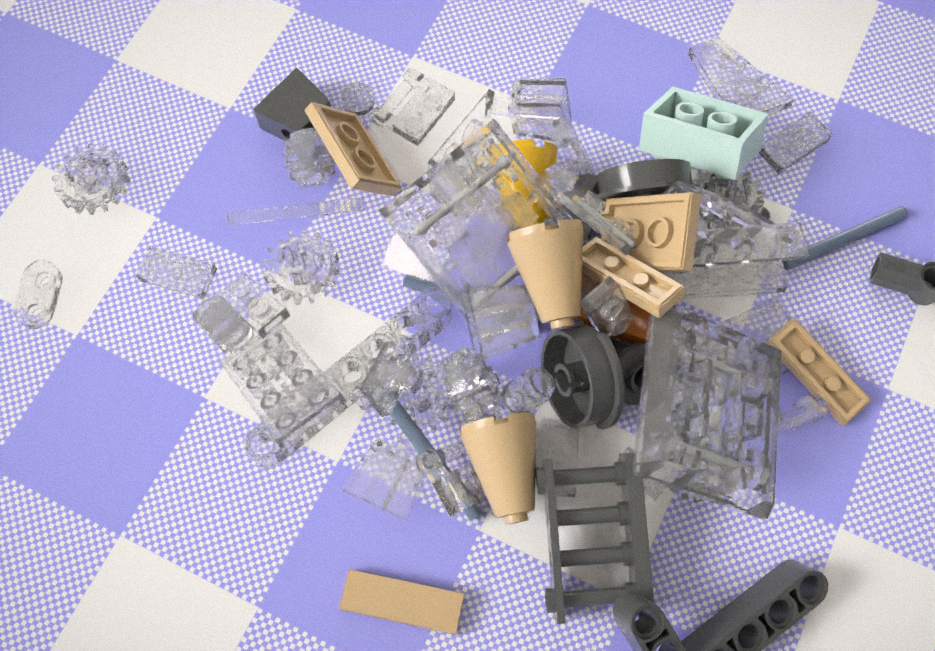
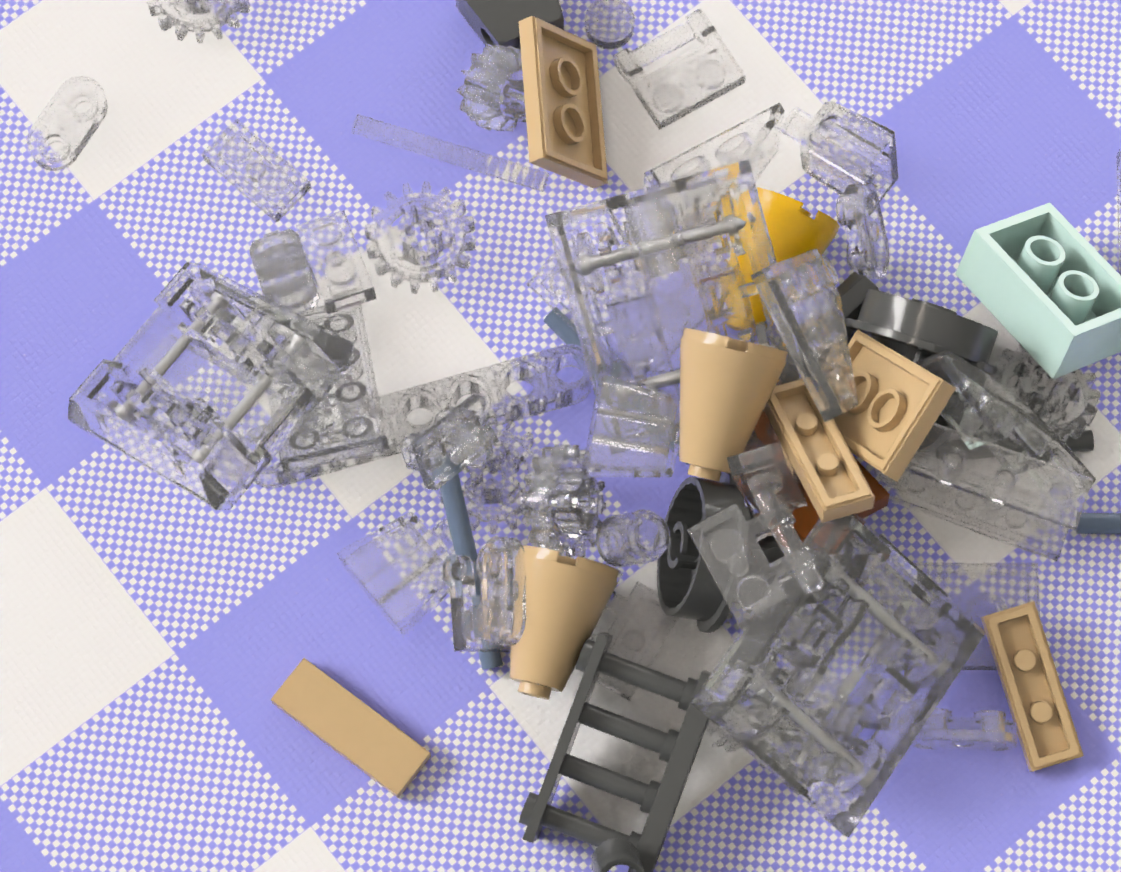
camera: 25 degrees right, 5 degrees up
(205, 416) = (210, 385): none -> clear piece
(465, 461) = (502, 591): none -> clear plate
(623, 368) = (740, 566): none -> clear plate

